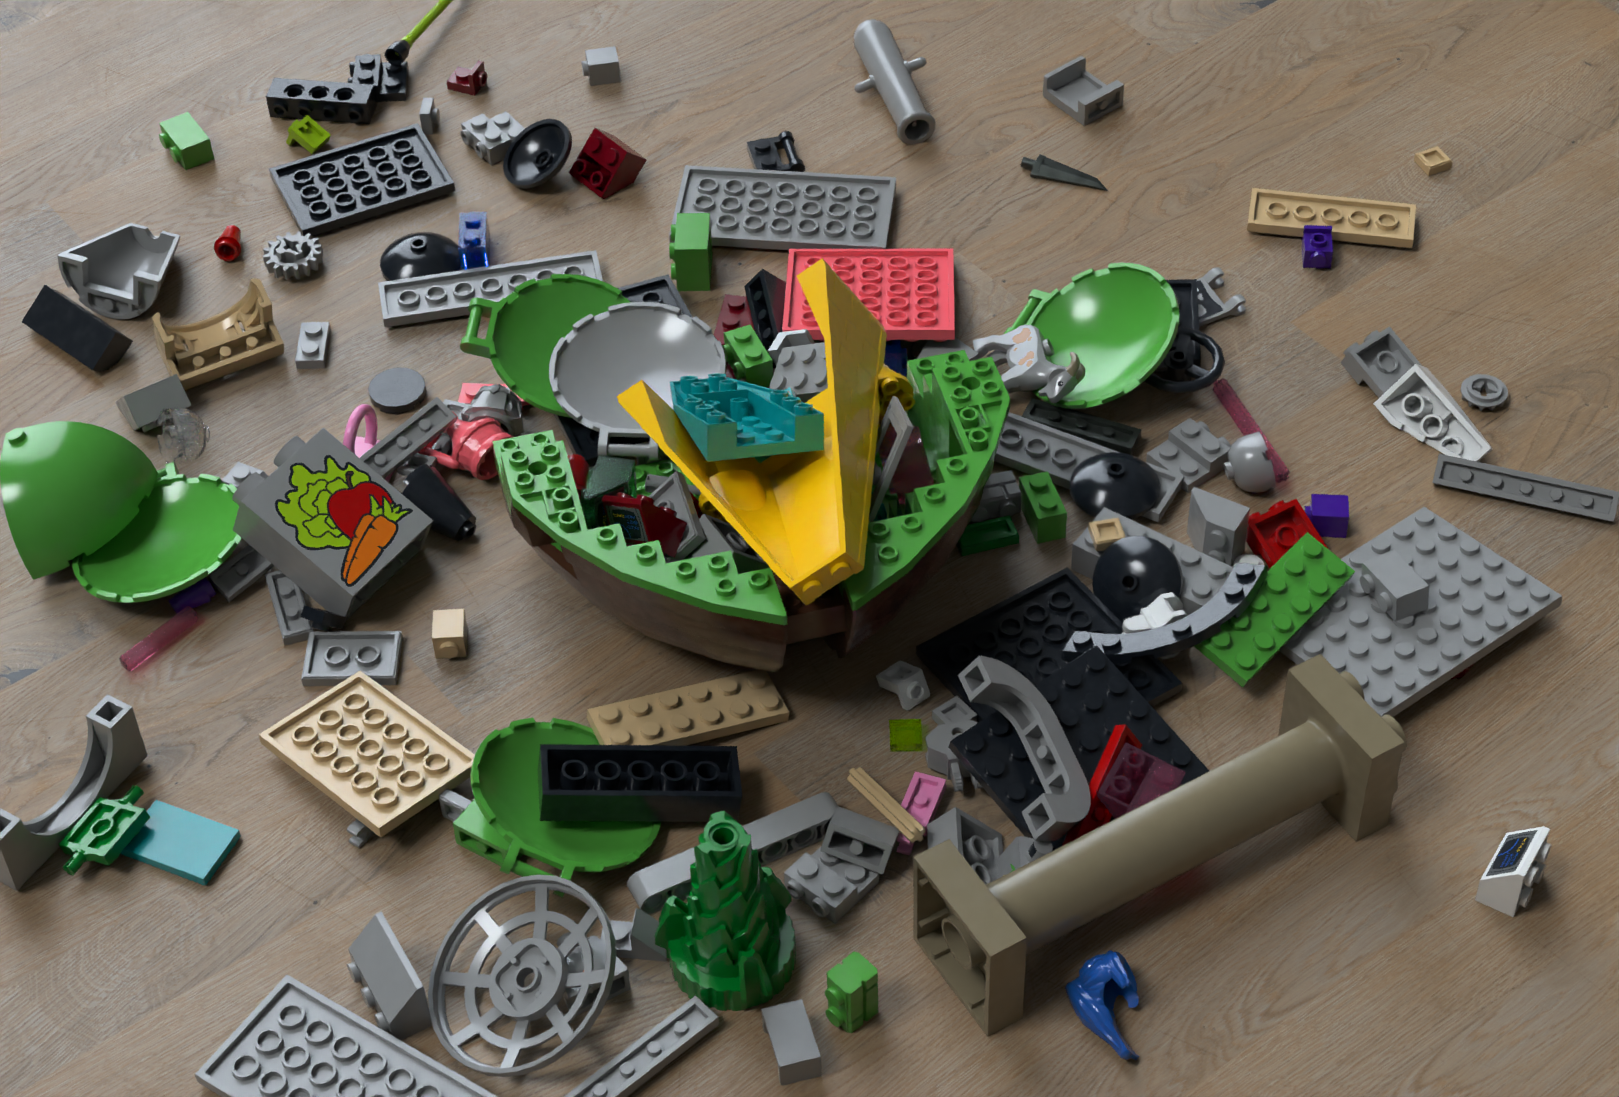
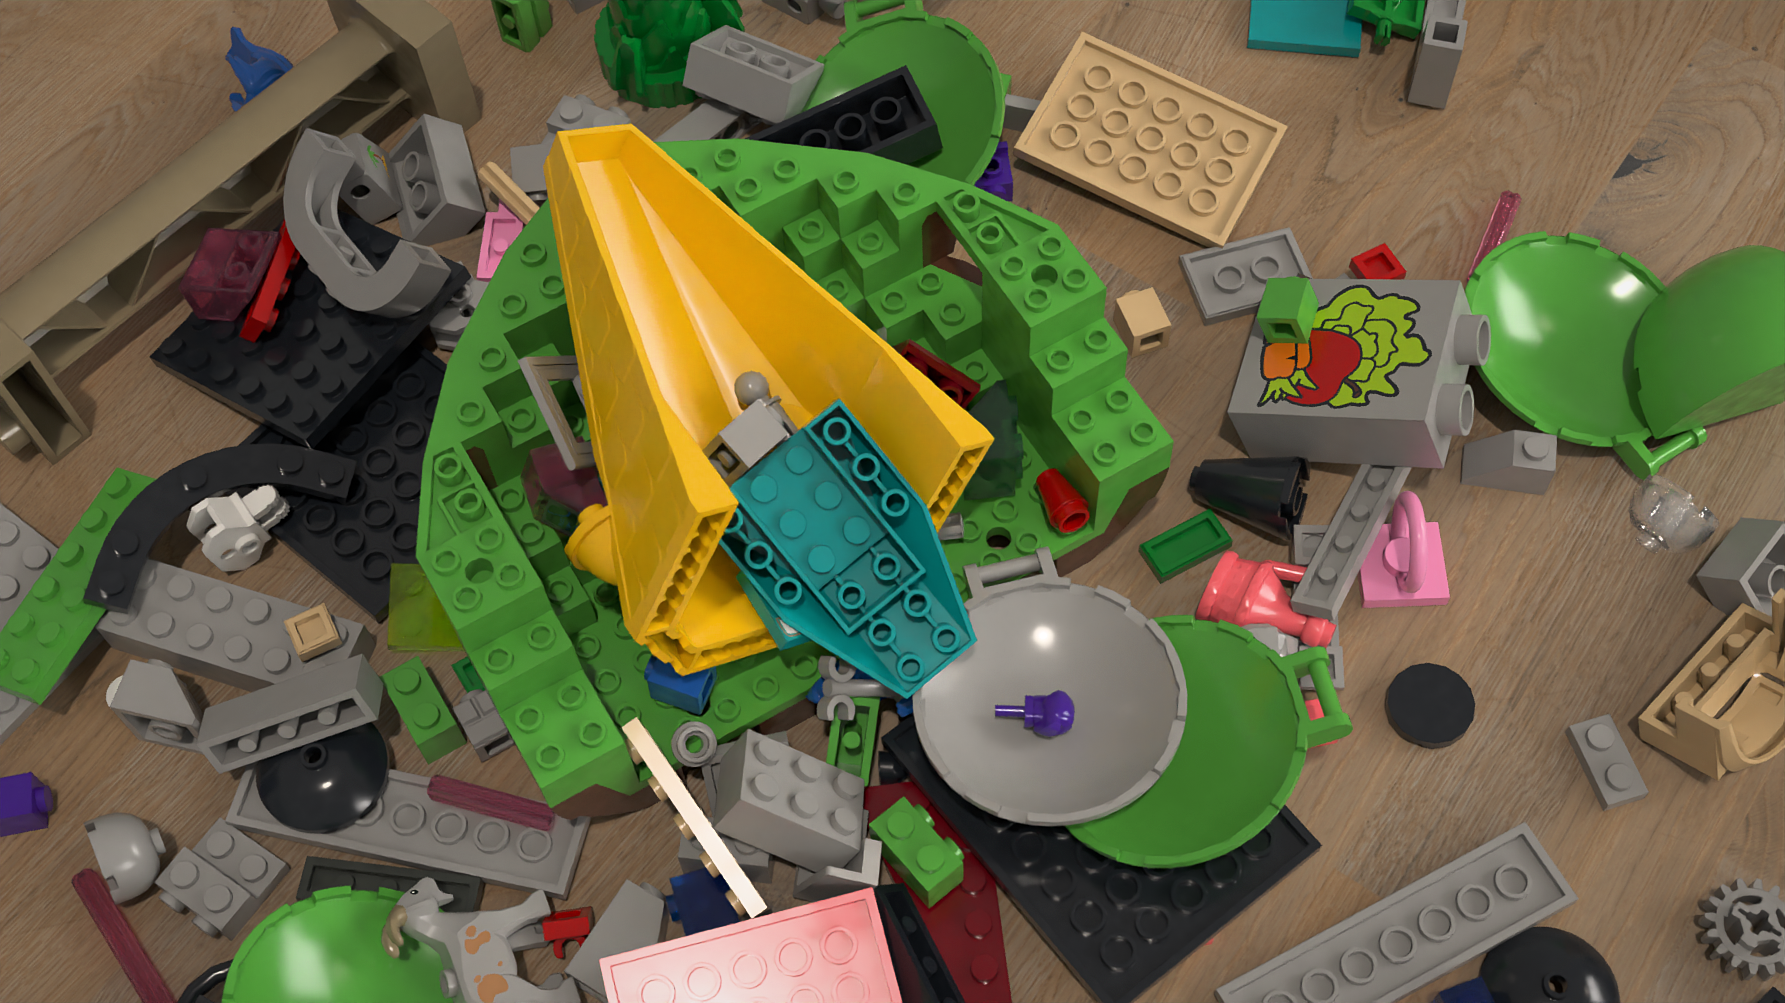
camera: 165 degrees right, 15 degrees up
(261, 624) = (1377, 264): none -> red tile
(359, 543) = (1287, 310): none -> bright green brick
(487, 504) = (1185, 546): none -> green tile
(637, 938) = (785, 32): light grey slope -> none
(643, 369) = (1046, 714): none -> dark purple piece
(656, 851) = (751, 74): none -> light grey slope
(755, 488) = (754, 386): none -> light grey pin
(778, 454) = (745, 441): none -> light grey brick
(1022, 449) = (491, 802): none -> clear pink axle
(1025, 565) = (416, 614): none -> clear neon green plate
(1127, 488) = (290, 714): none -> light grey brick
(1148, 563) = (268, 583): black dish -> none
(1278, 530) = (79, 746): red plate -> none

